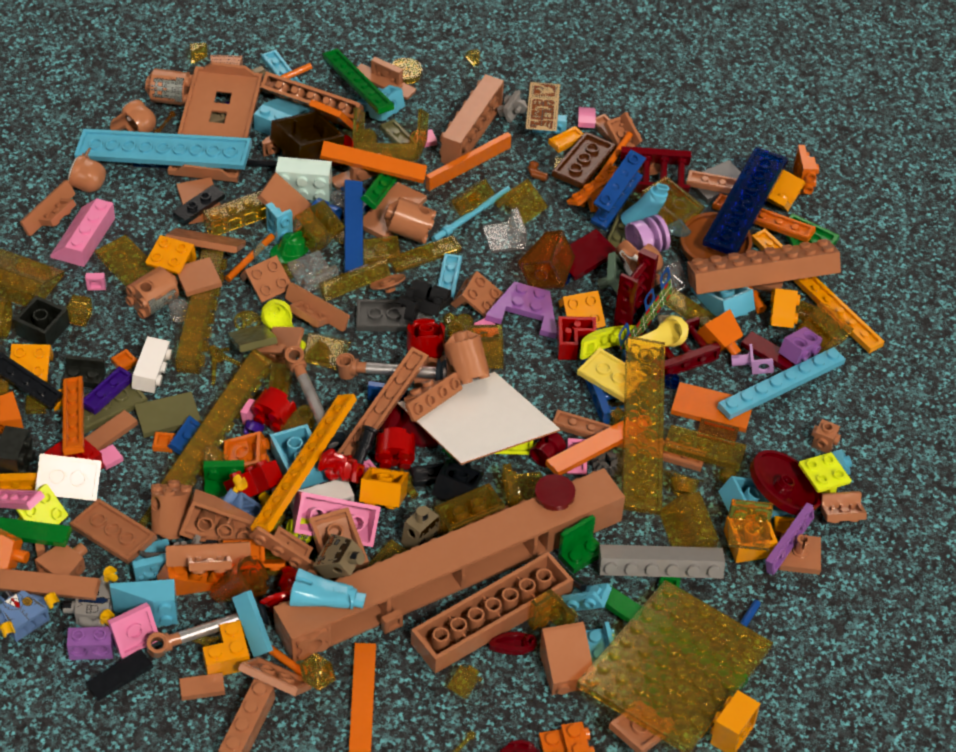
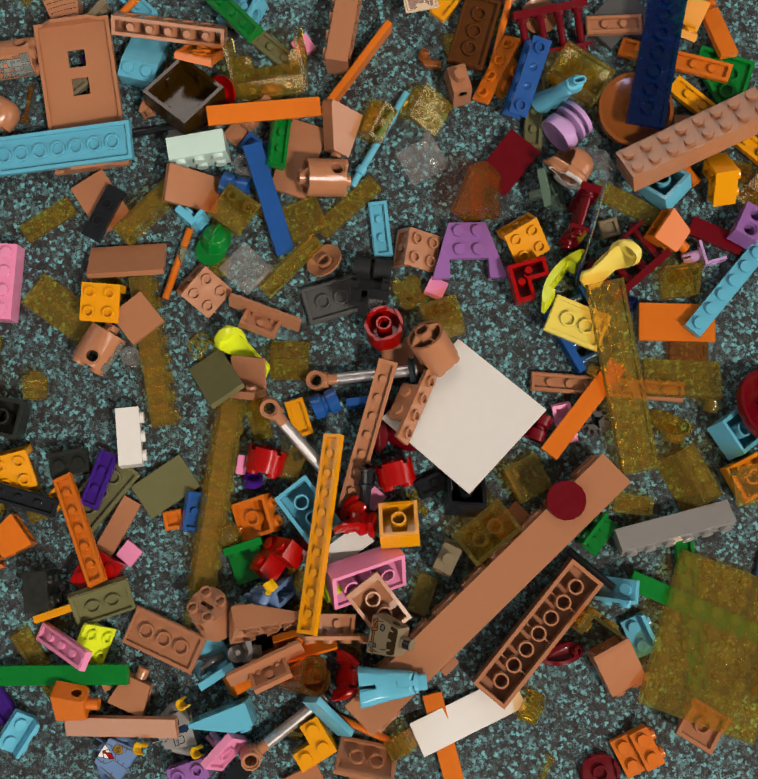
camera: 10 degrees left, 35 degrees up
(95, 281) = (37, 345): bright pink tile -> none
(124, 359) = (101, 432): orange tile -> none
(146, 202) = (48, 220): none -> clear yellow tile
(217, 357) = (189, 402): clear yellow plant -> none
(321, 387) = (299, 416): none -> light orange tile
(347, 383) = (325, 403): none -> blue wheel
(389, 674) = (463, 719): none -> white sticker
(438, 189) = (339, 128): none -> nougat slope
(557, 181) = (458, 82): none -> nougat torso
(624, 534) = (633, 504): none -> clear yellow plate
(678, 229) = (597, 110): clear light blue tile -> none
(724, 371) = (680, 280): none -> clear yellow slope
(810, 209) = (719, 34): none -> orange tile

